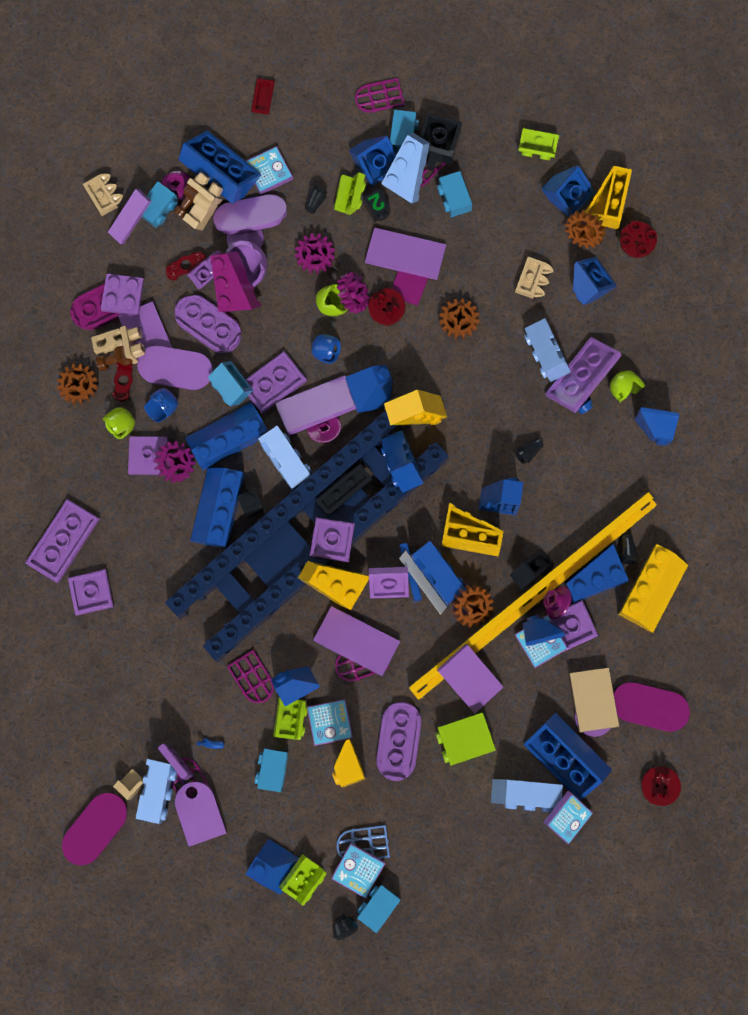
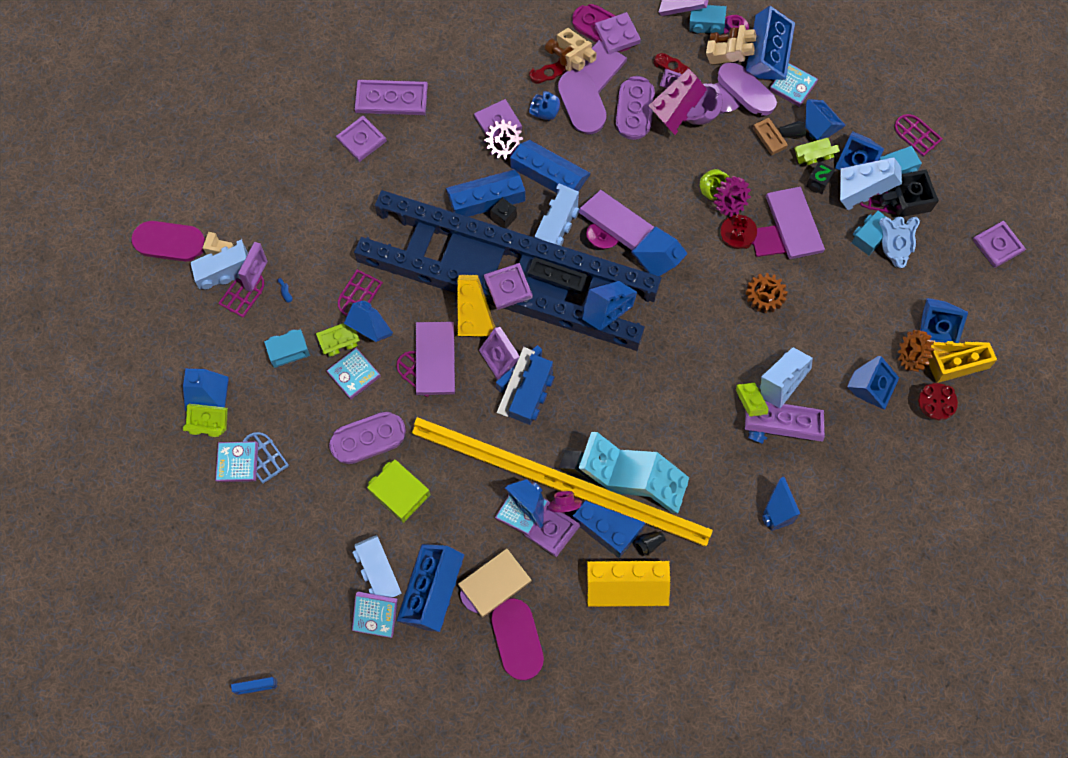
camera: 55 degrees right, 10 degrees down
(71, 388) = (525, 41): dark orange gear -> none
(120, 421) = (512, 83): lime helmet -> none
(199, 815) = (220, 312): medium lavender tile -> none
(230, 383) = (594, 146): dark azure brick -> none
(263, 96) = (852, 48): dark red tile -> none
(274, 382) = (617, 180): medium lavender tile -> none
(309, 223) = (770, 136): none -> medium nougat plate
(311, 262) = (738, 154): magenta gear -> none
(320, 168) = (821, 120): none -> blue slope
(323, 348) = (673, 198): blue helmet -> none
(344, 927) = (181, 474): black cone -> none
(348, 767) = (319, 396): yellow slope -> none
(378, 908) = (212, 495): dark azure brick -> none
(416, 408) = (663, 293): yellow wedge -> none
(470, 533) = (581, 398): yellow wedge -> none
(470, 678) = (453, 465): medium lavender tile -> none
(474, 596) = (515, 437): dark orange gear -> none
(475, 176) = (899, 239): none -> light blue tile
(502, 496) = (631, 408): blue wedge -> none
(523, 97) = (999, 244): none -> medium lavender tile
(528, 451) = (687, 411): black cone -> none
(532, 276) = (844, 333): tan plate -> none
(538, 143) = (966, 275): lime bracket -> none
(550, 390) = (752, 399): none -> lime plate
(565, 528) = (634, 472): none -> medium azure bracket
(574, 953) = (254, 686): none -> blue tile
(624, 383) = (801, 457): lime helmet -> none
(659, 795) = (458, 683): dark red plate -> none

